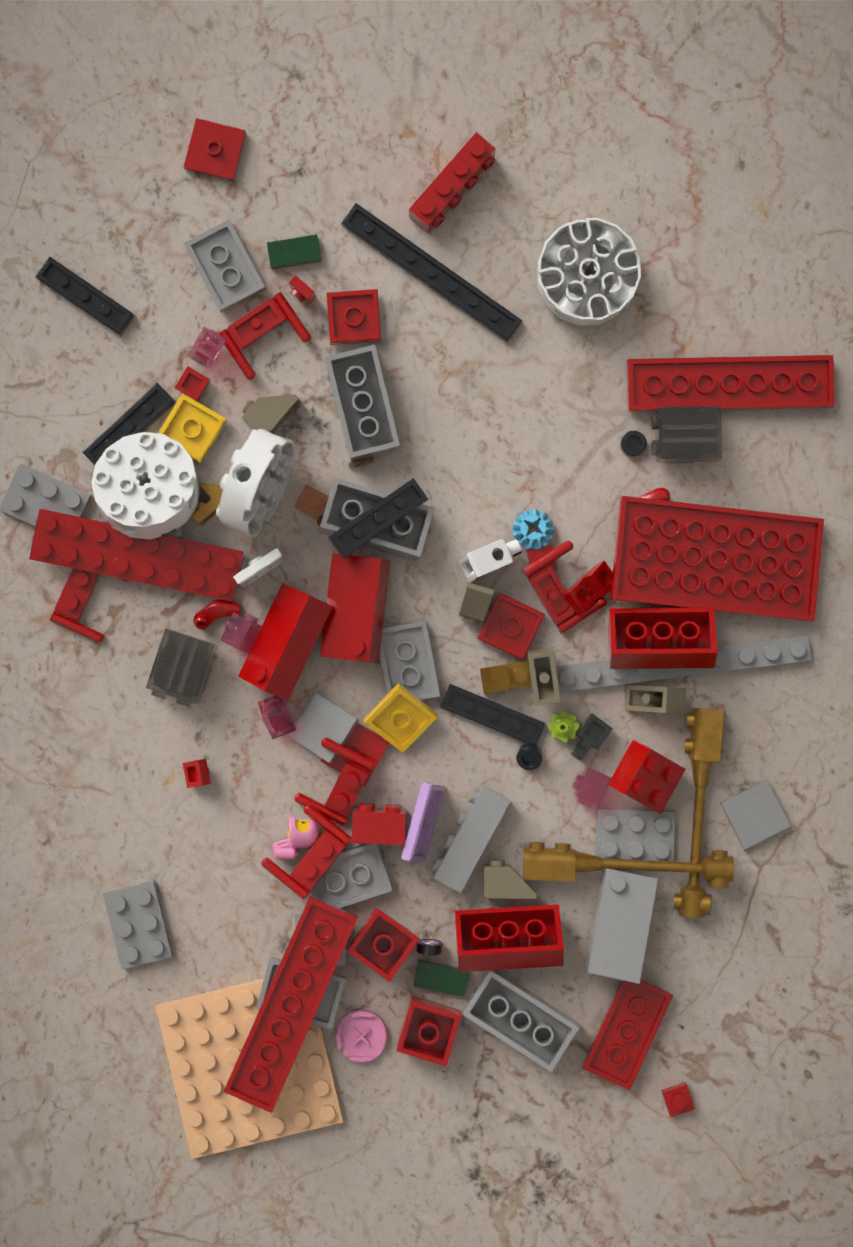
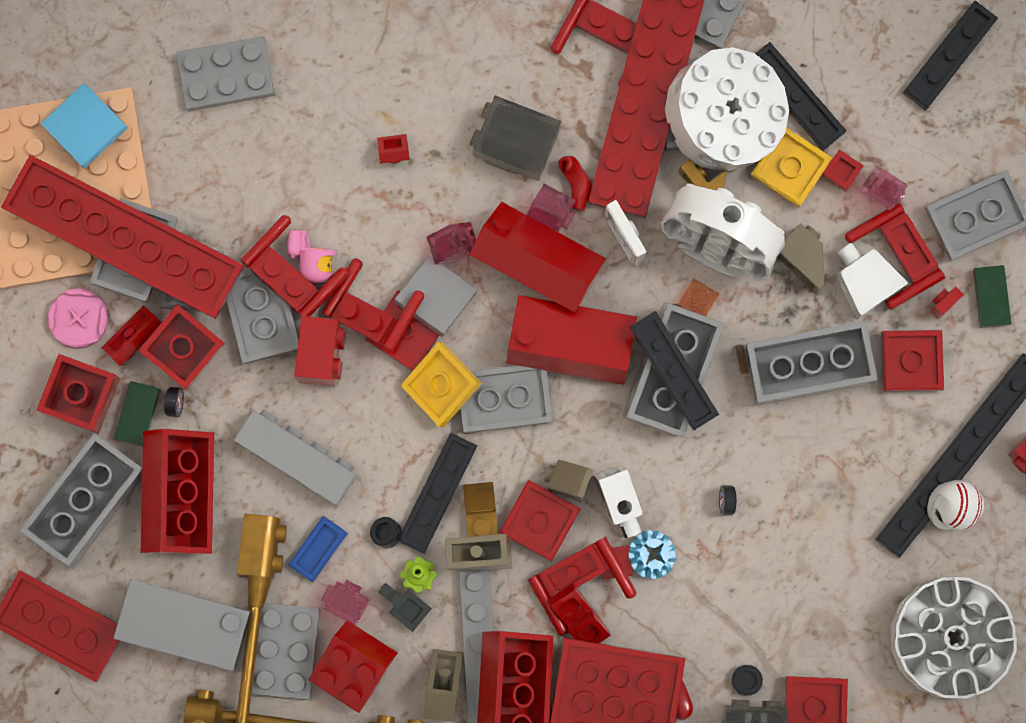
camera: 90 degrees right, 5 degrees down
(193, 1045) = (84, 125): none -> medium azure slope
(286, 358) = (867, 279): none -> white torso
(374, 988) = (131, 335): none -> red plate
(423, 822) = (319, 402): lavender tile -> none
(474, 272) = (958, 505): none -> white helmet
(483, 468) = (727, 500): none -> black tile
(504, 882) = (242, 494): dark tan slope -> none
(546, 813) = (318, 549): none -> blue tile

